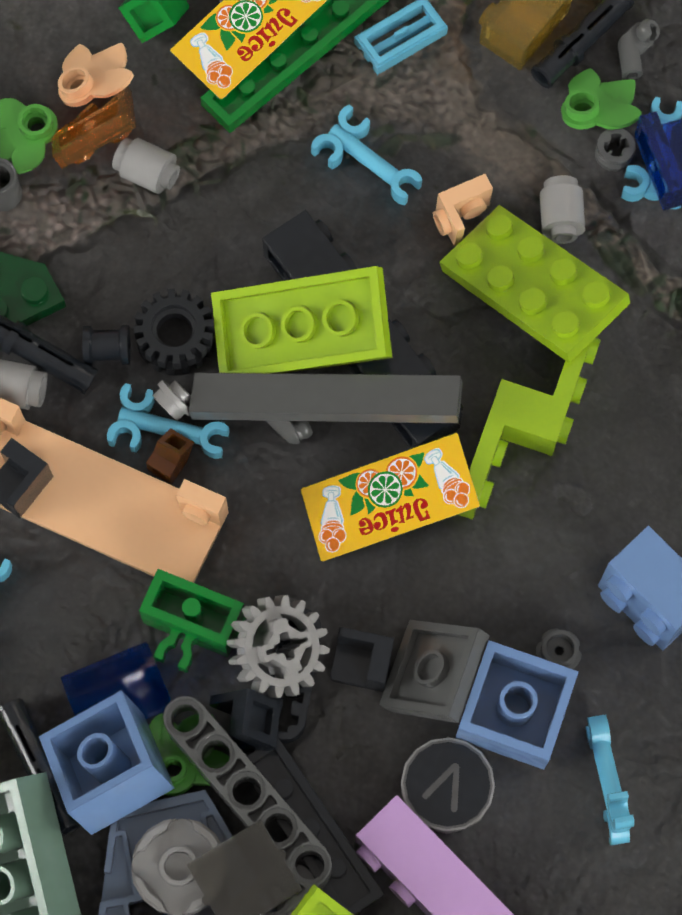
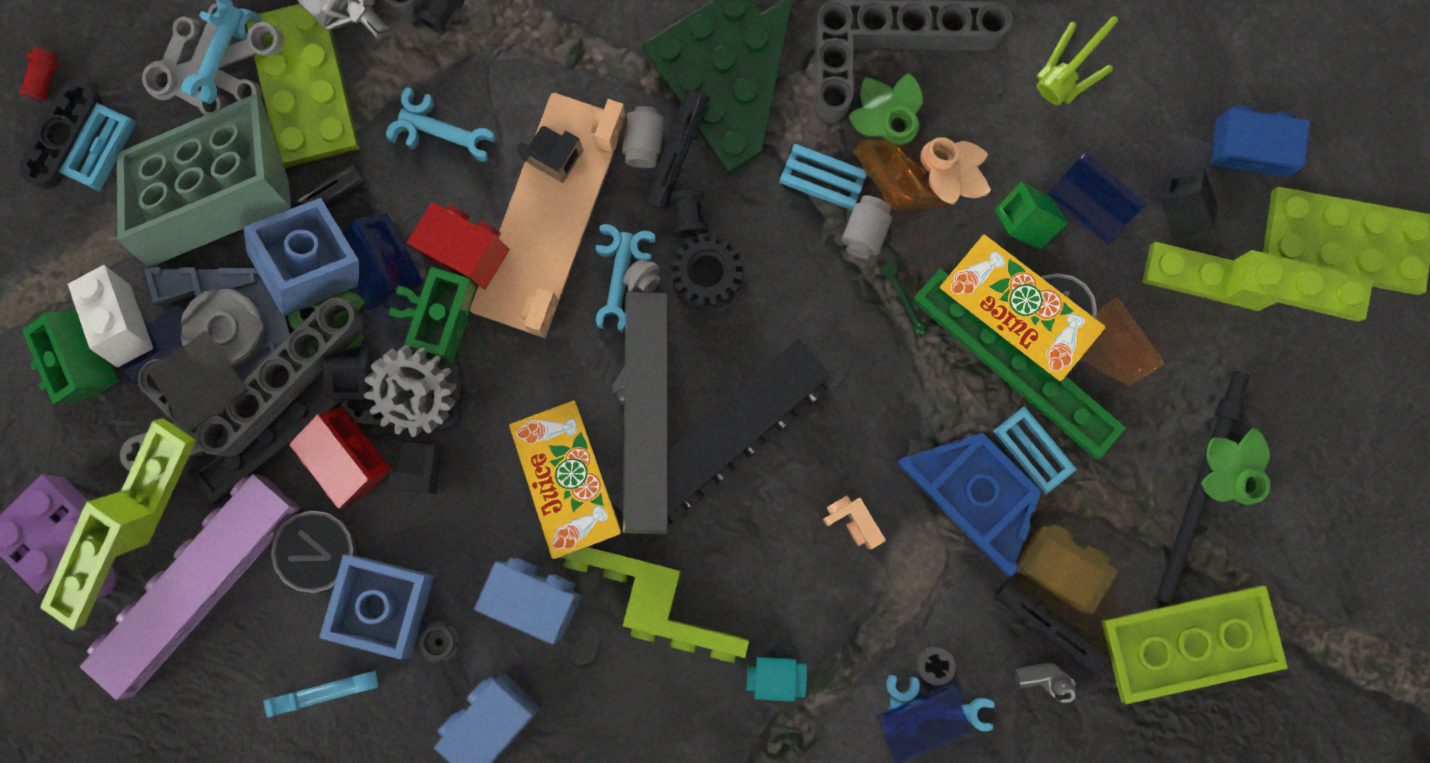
camera: 85 degrees right, 10 degrees up
(73, 190) = (828, 163): none -> medium azure tile
(110, 590) = (459, 245): none -> red brick
(169, 456) = (590, 280): reddish brown piece -> none
(194, 152) = (889, 271): none -> dark green hinge
(303, 323) = (713, 383): lime plate -> none
(344, 740) = (340, 457): none -> brick
(347, 138) = (918, 405): medium azure bar -> none
(434, 670) = (403, 531): dark grey plate -> none
(441, 88) = (979, 493): none -> blue wing
(525, 531) = (528, 600): none -> medium blue brick
(535, 283) = (781, 596): lime plate -> none
(562, 209) = (864, 618): light grey brick -> none
(599, 103) = (987, 651): bright green plate -> none
(630, 281) = (777, 679): none -> teal brick

